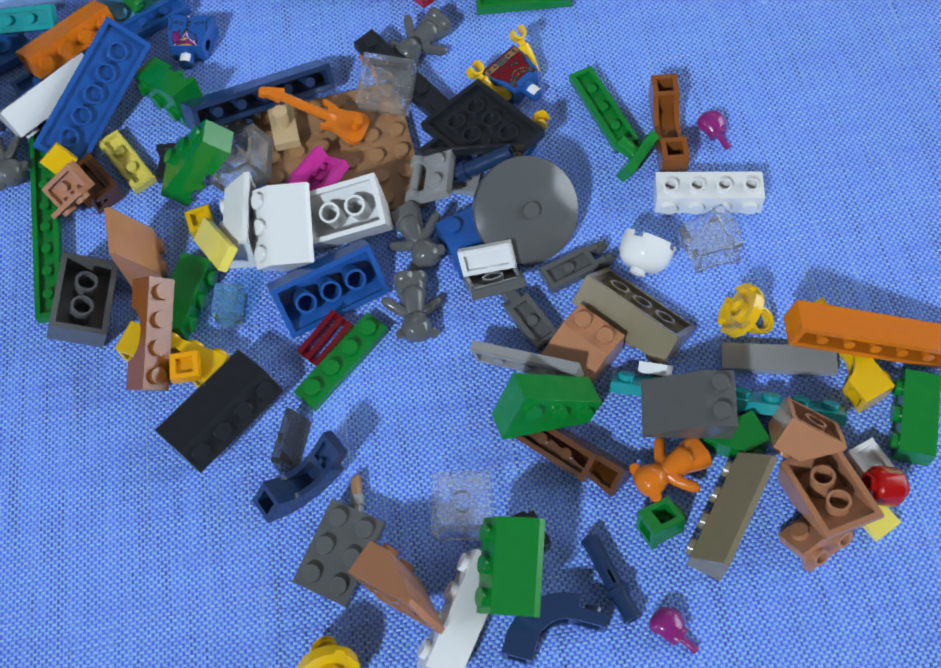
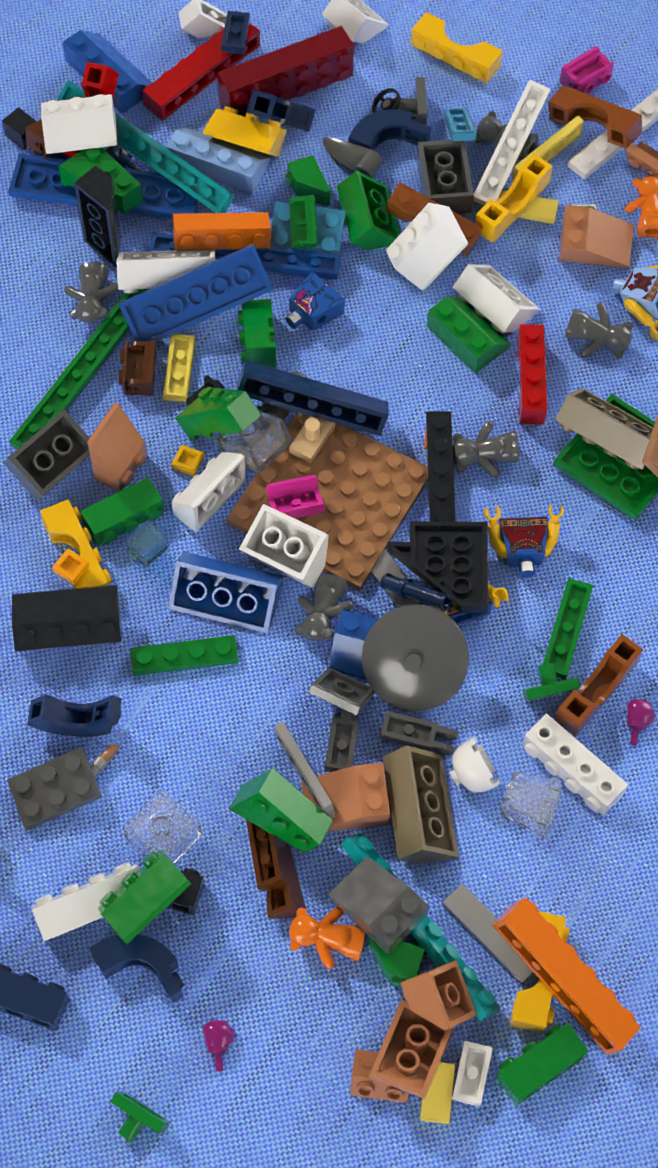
camera: 35 degrees right, 0 degrees up
(57, 158) = (128, 329): yellow tile -> none
(67, 188) = (113, 360): nougat bracket -> none
(154, 304) = (88, 504): dark orange arch -> none
(215, 245) = (175, 491): light yellow tile -> none
(282, 226) = (230, 518): white slope -> none
(290, 441) = (95, 682): clear smoke slope -> none
(318, 332) = (188, 619): dark red tile -> none
(346, 124) = (356, 475): orange piece -> none
(386, 84) = (411, 469): clear brick -> none
(395, 584) = (65, 841): nougat slope -> none
(412, 307) = (268, 662): dark grey piece -> none
(437, 179) = (380, 575): light grey plate -> none
(487, 258) = (354, 669): white tile -> none
(617, 589) = (207, 983): dark blue pin -> none
(655, 368) = (390, 858): white tile -> none
(660, 522) = (283, 965): green brick -> none
(730, 514) = (334, 1004): dark tan slope -> none
(743, 311) = (497, 874): yellow tile -> none
(886, 485) = (457, 1084): red head -> none

